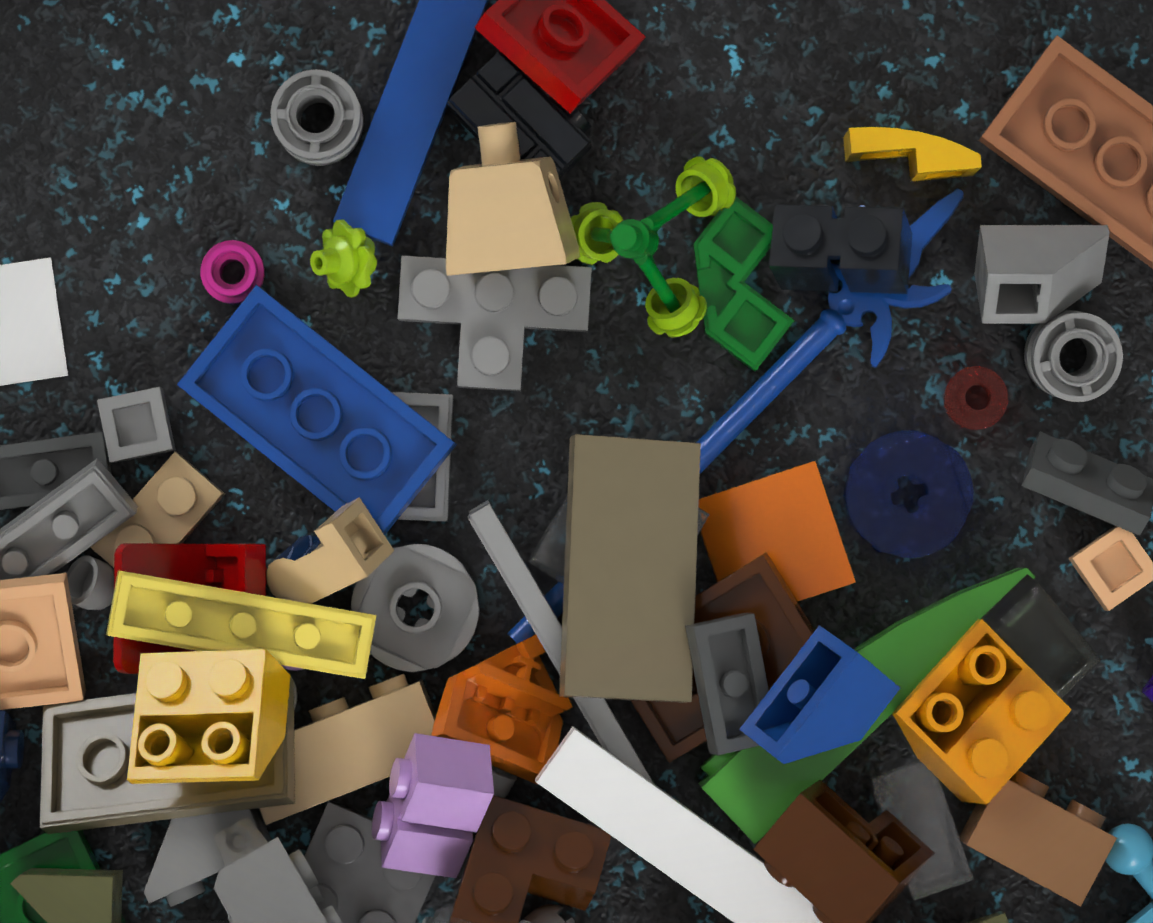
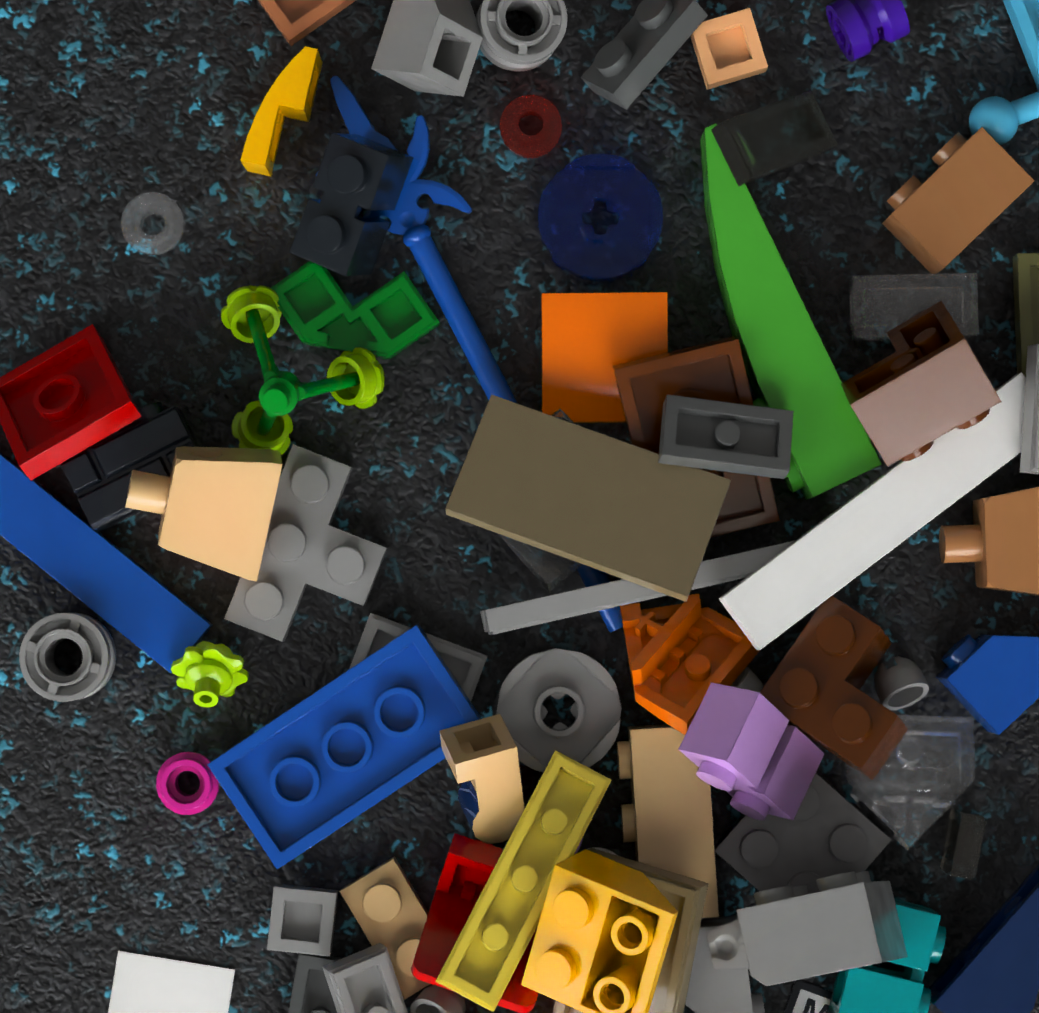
camera: 70 degrees left, 0 degrees up
(762, 43) = (139, 209): none -> clear plate
(820, 701) = (769, 359): blue slope -> none
(979, 715) = (829, 216): light orange slope -> none

